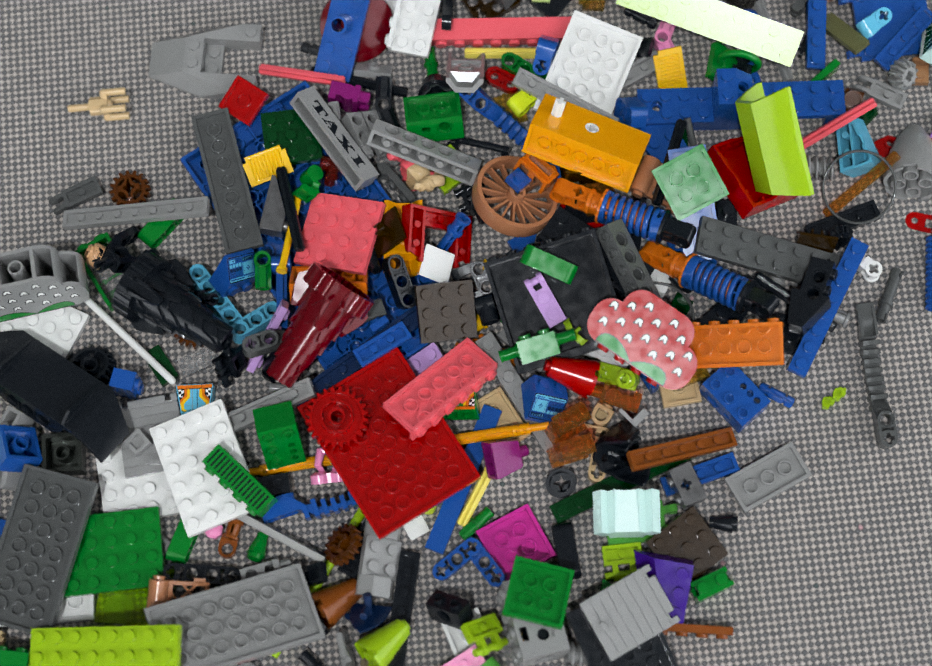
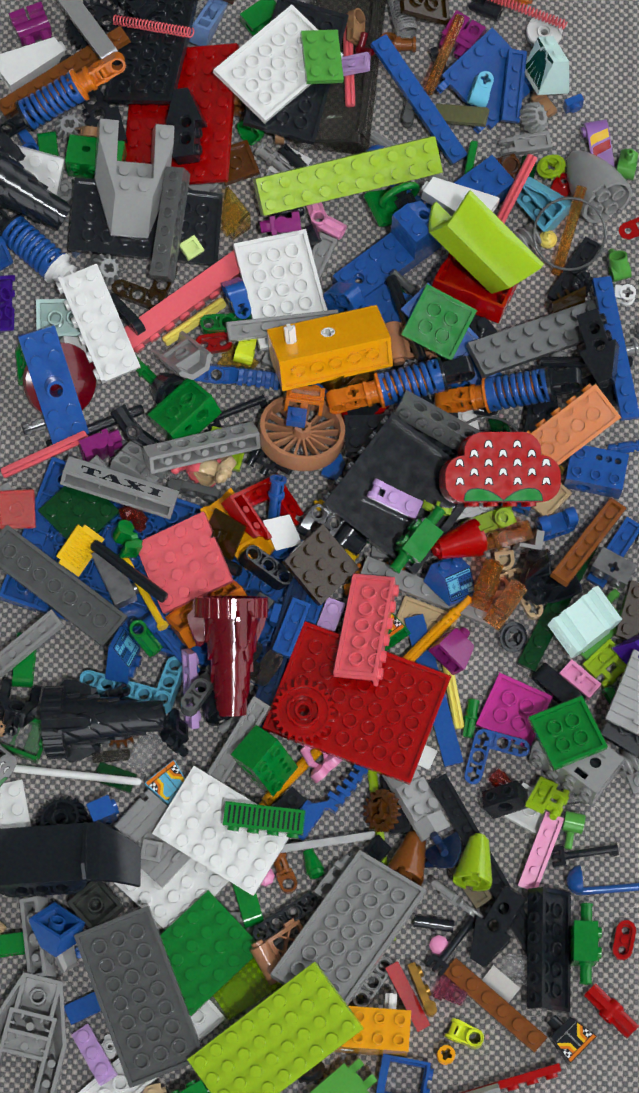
camera: 40 degrees left, 0 degrees up
(170, 346) = (111, 756): none -> clear smoke axle
(335, 362) = (267, 667): none -> clear smoke piece
(372, 70) = (100, 409): light grey plate -> none
(461, 590) = (499, 778): none -> clear red cone
(548, 264) = (378, 467): green beam -> none
(588, 557) = (580, 679): none -> bright pink hinge
(627, 21) = (281, 223): none -> magenta hips
(667, 416) = (558, 523): none -> blue piece
(670, 68) = (345, 240): yellow window -> none
(774, 79) = (450, 195): none -> white slope
(840, 181) = (548, 239): none -> light yellow plate
(883, 242) = (618, 265): none -> bright green piece
(893, 121) = (554, 161): none -> lime gear

